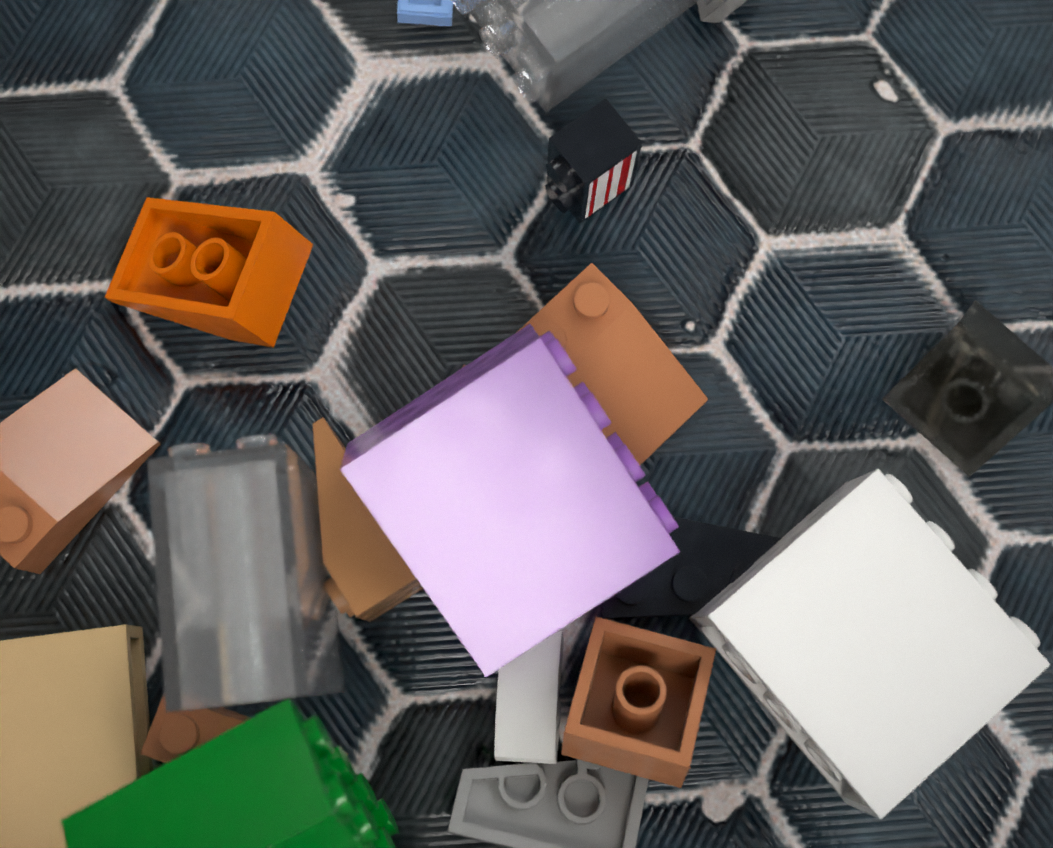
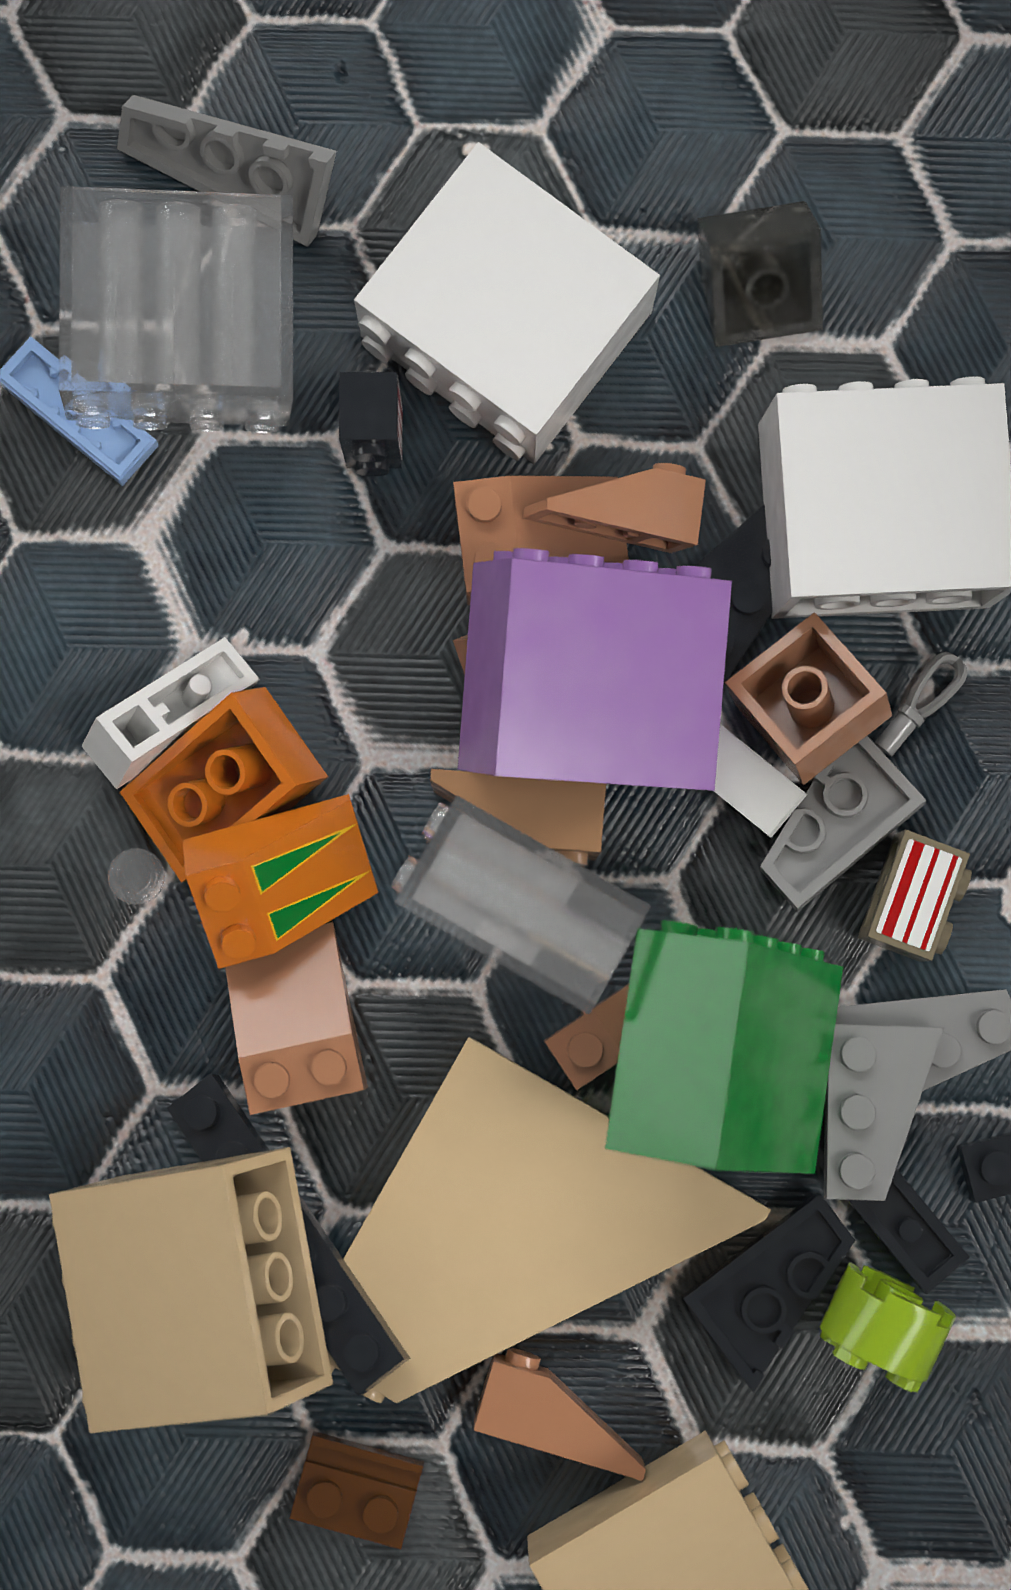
camera: 55 degrees left, 5 degrees up
(84, 259) = (136, 876): none -> clear plate
(148, 363) = (277, 878): none -> orange slope
(213, 172) = (155, 717): none -> white slope
(695, 436) = (644, 509): none -> nougat slope
(695, 805) = (909, 716): none -> light grey piece
(775, 196) = (505, 304): none -> white brick

